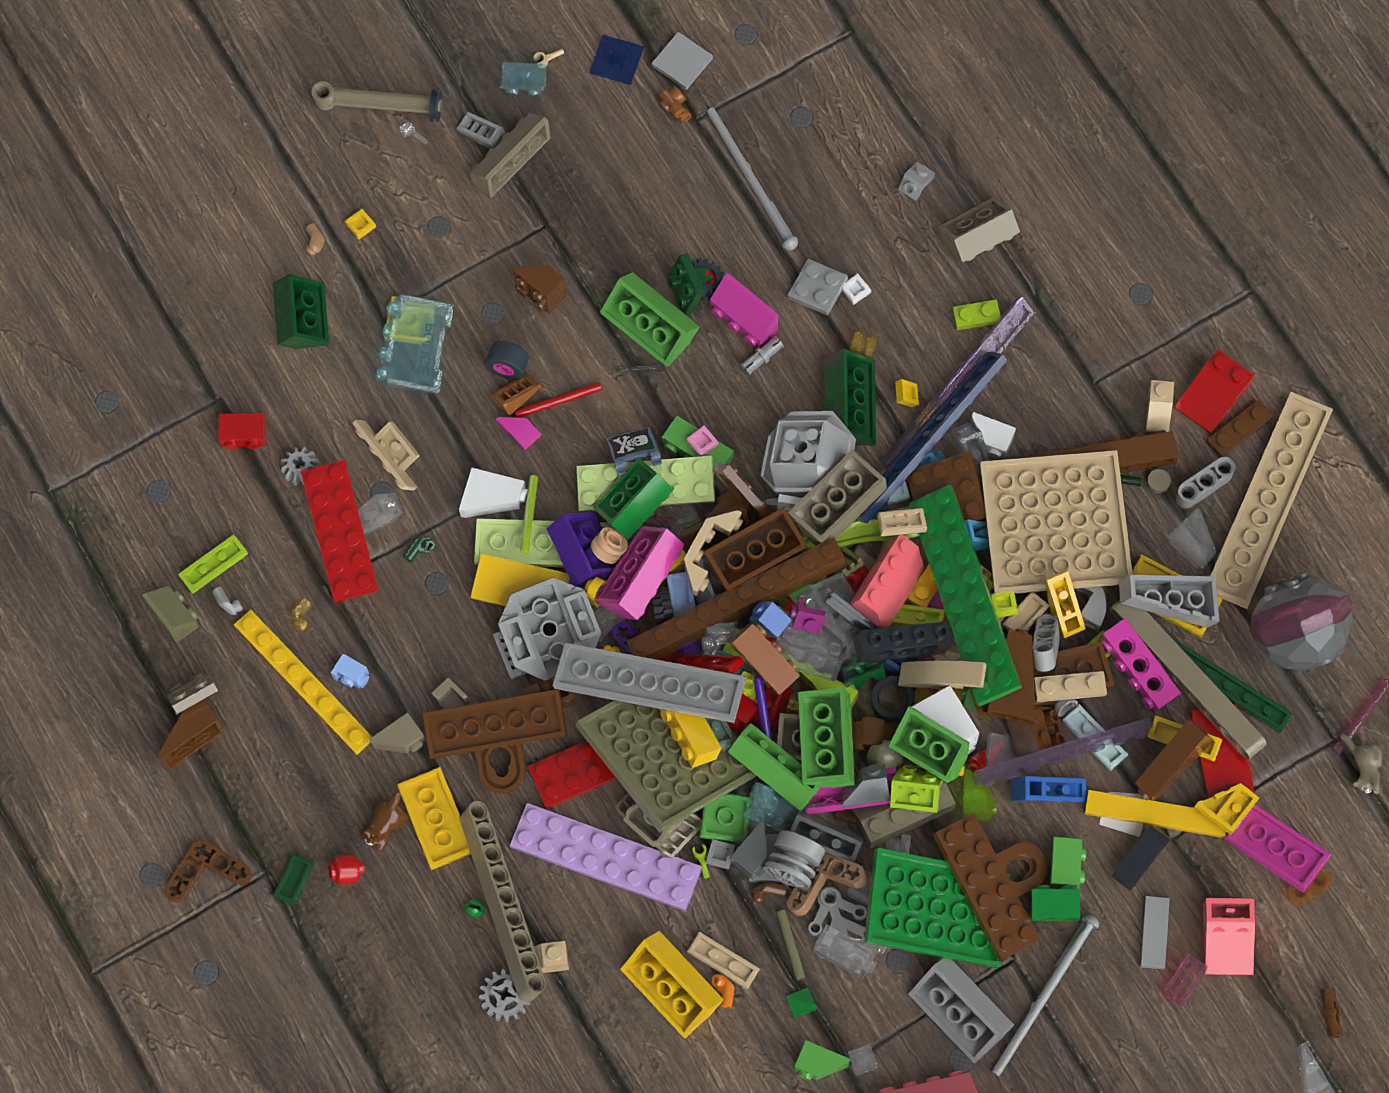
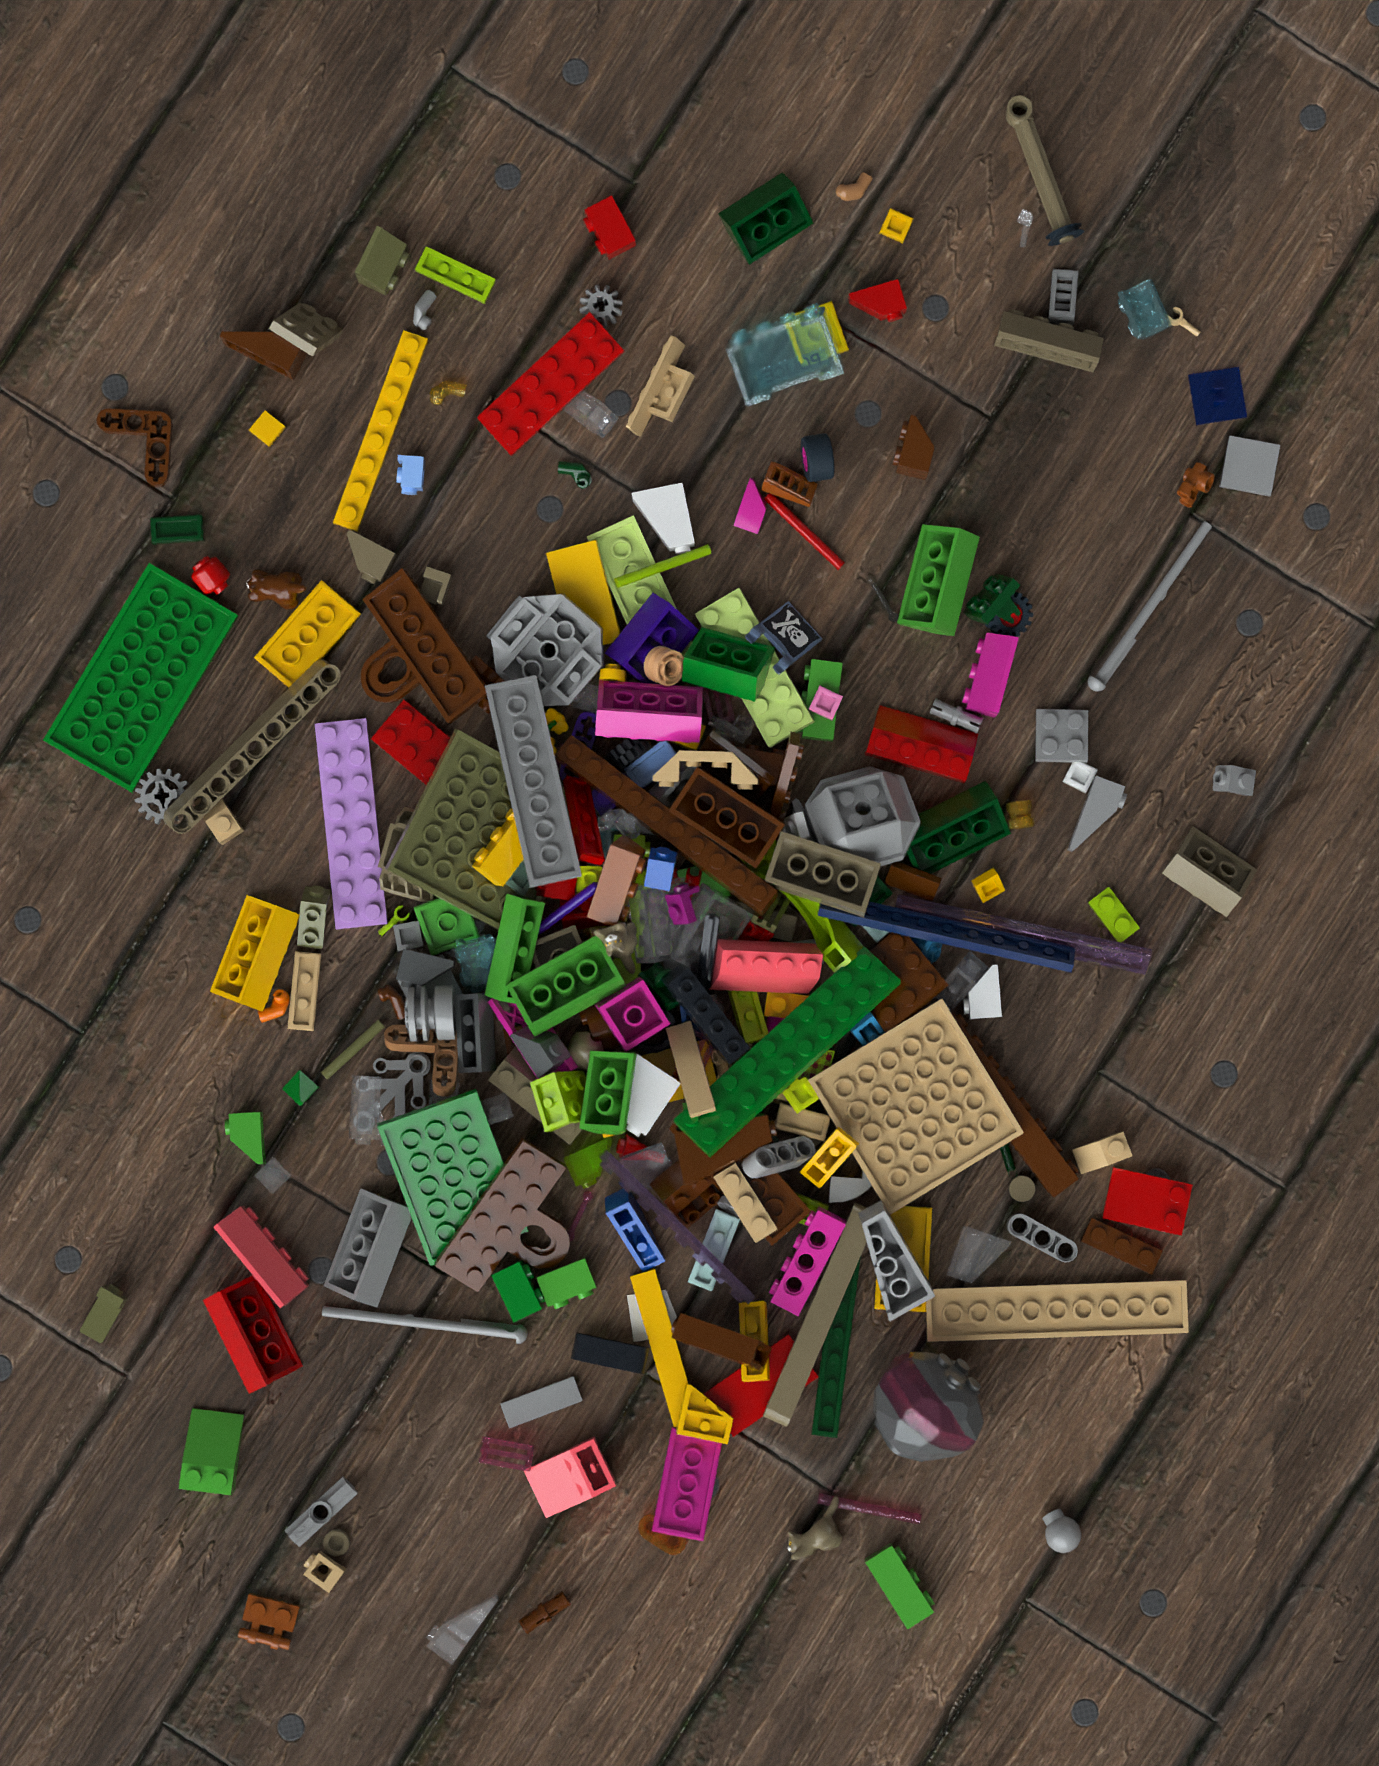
camera: 60 degrees right, 15 degrees up
(252, 769) = (267, 428): none -> yellow tile
(398, 967) = (140, 677): none -> green plate
(412, 260) = (880, 301): none -> red slope
(474, 913) = (242, 720): green hinge -> none
(667, 922) = (313, 916): none -> olive bracket
(772, 391) = (922, 744): none -> red slope
(812, 679) = (620, 942): none -> dark tan animal
(875, 700) = (632, 1014): none -> dark pink brick
(876, 444) = (912, 880): none -> reddish brown tile
(886, 284) = (1100, 804): none -> light grey slope
(901, 522) = (834, 950): tan plate -> none
(1004, 816) = (588, 1195): none -> clear pink hinge

